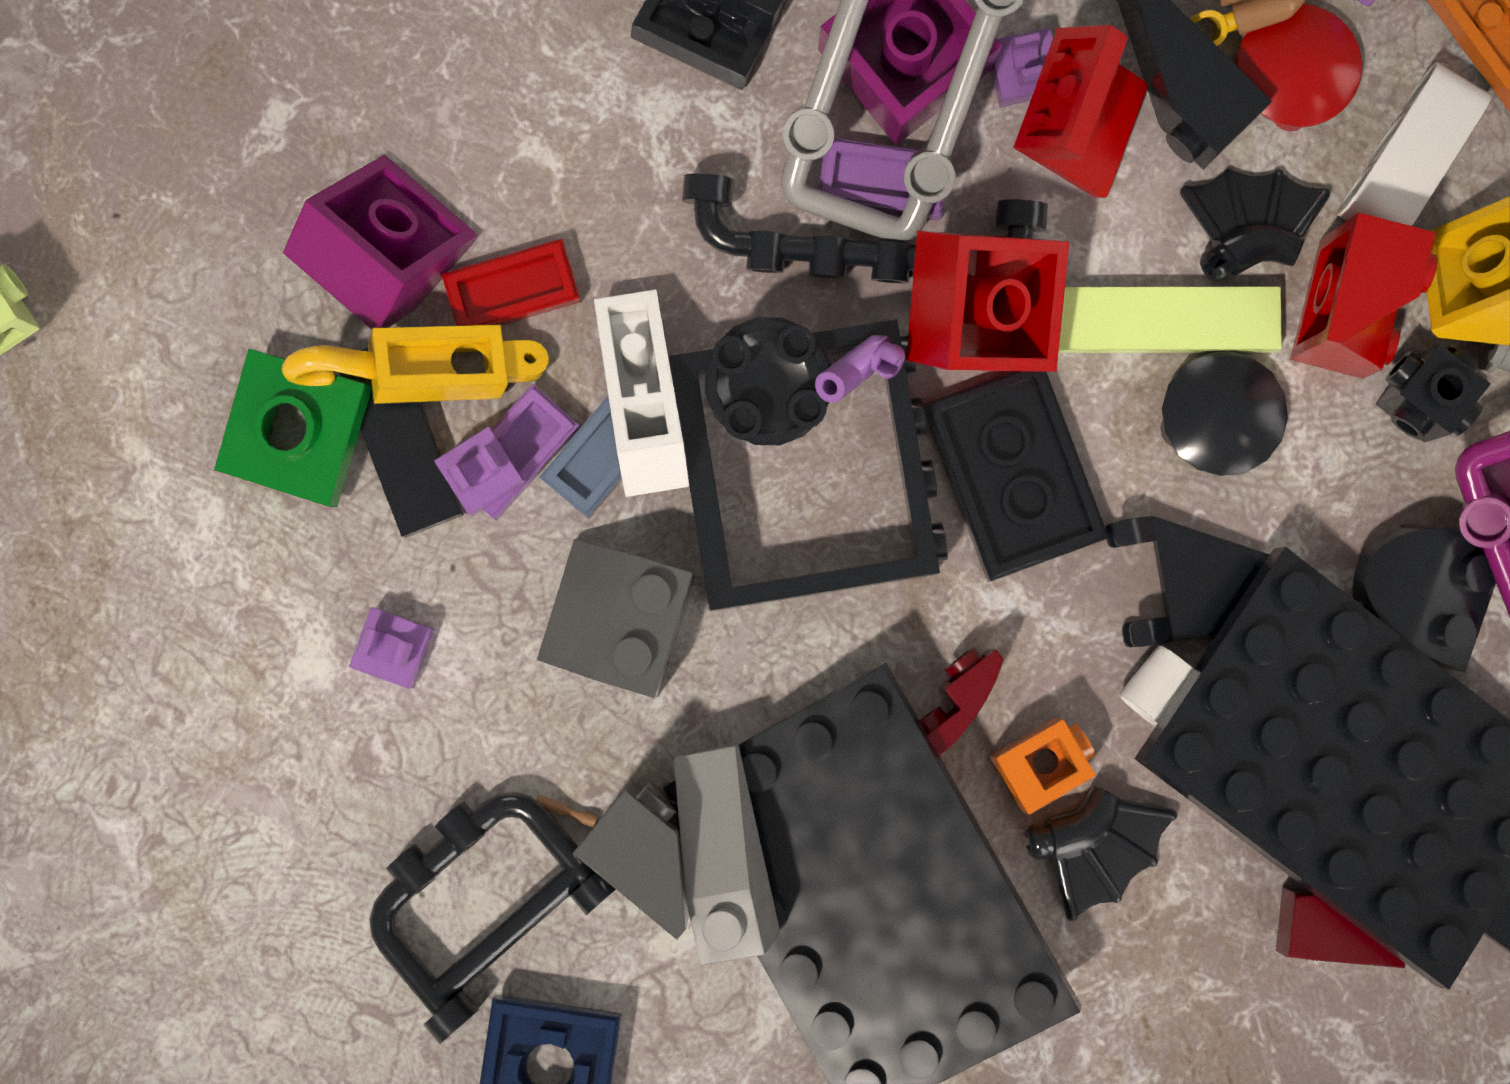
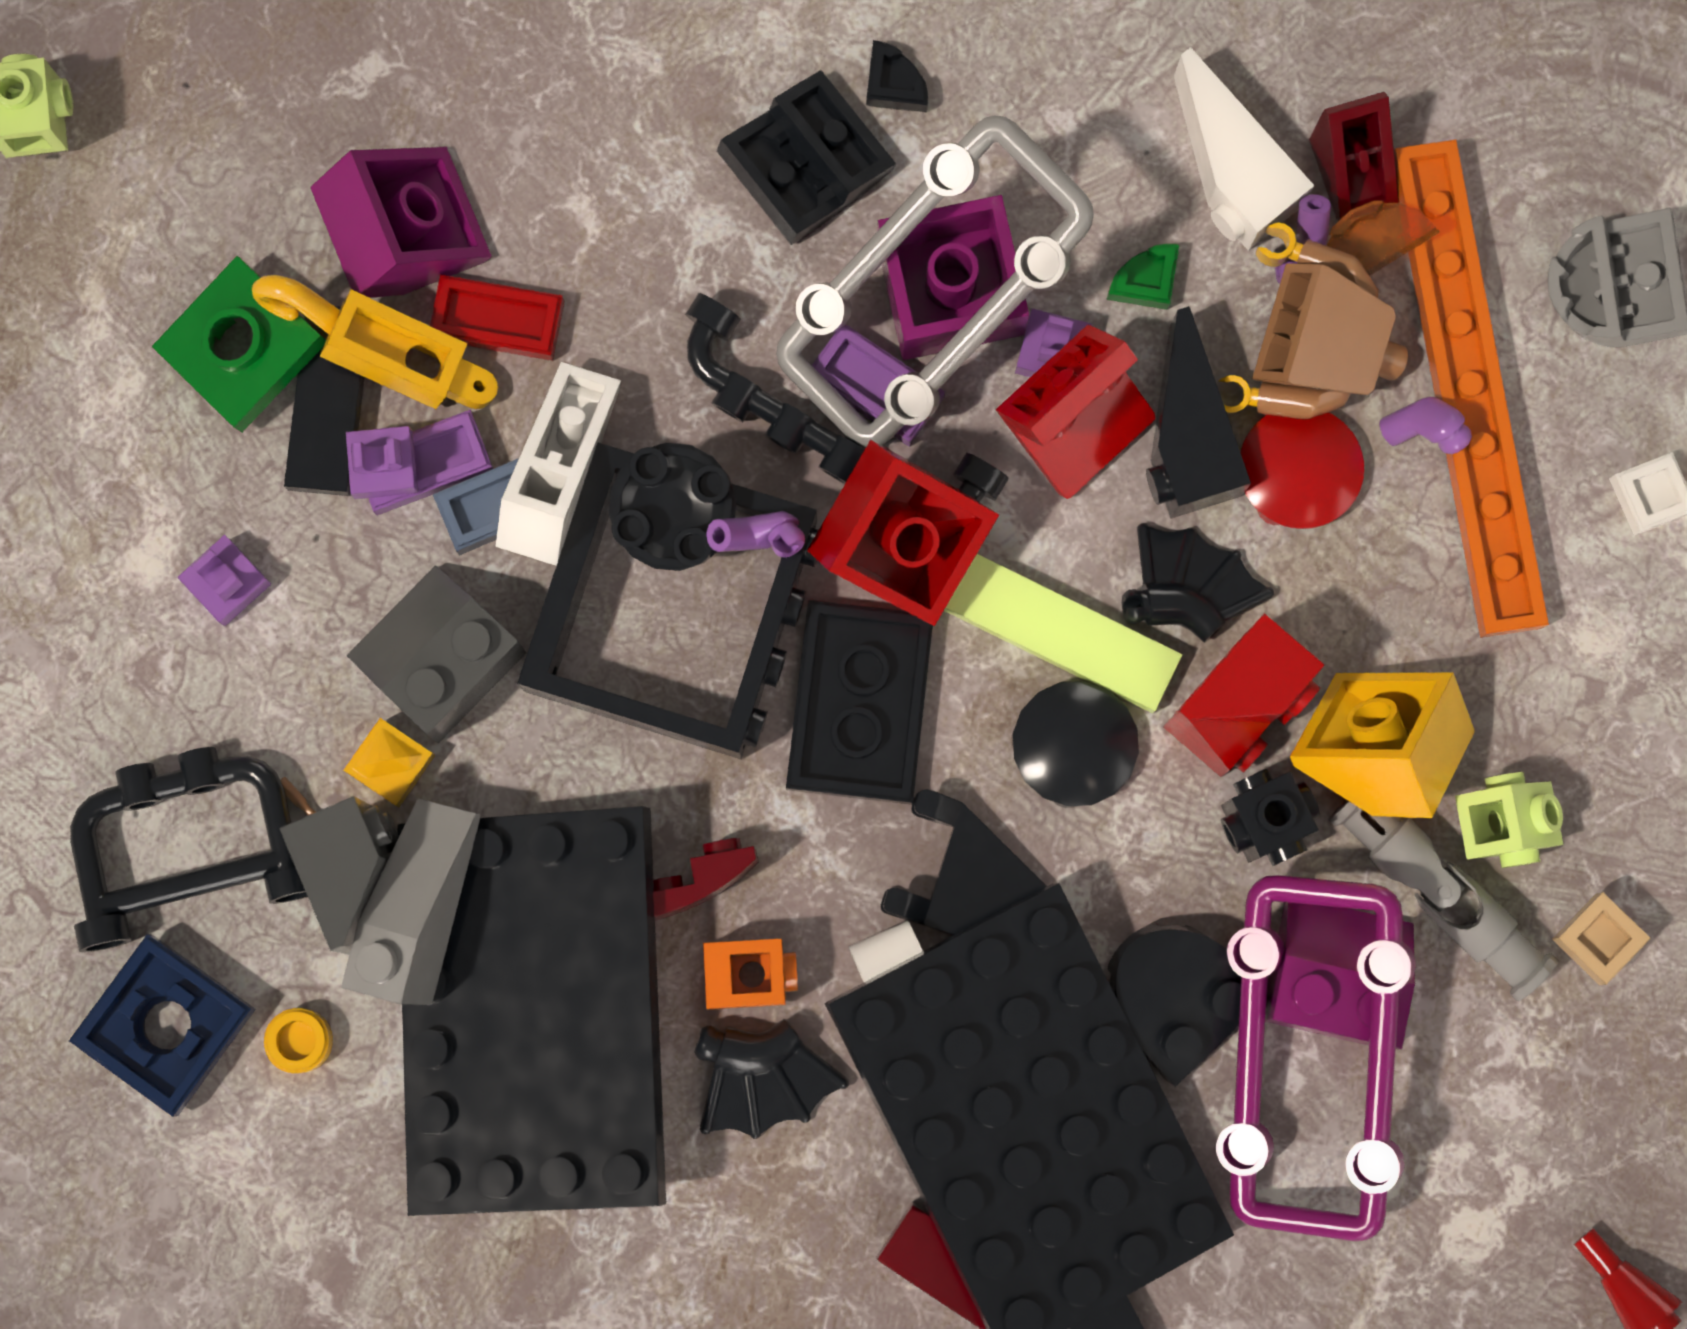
camera: 25 degrees right, 5 degrees down
(625, 736) = (389, 762): none -> yellow tile
(674, 1021) = (298, 1040): none -> yellow tile
(1417, 148) = (1366, 593): white beam -> none

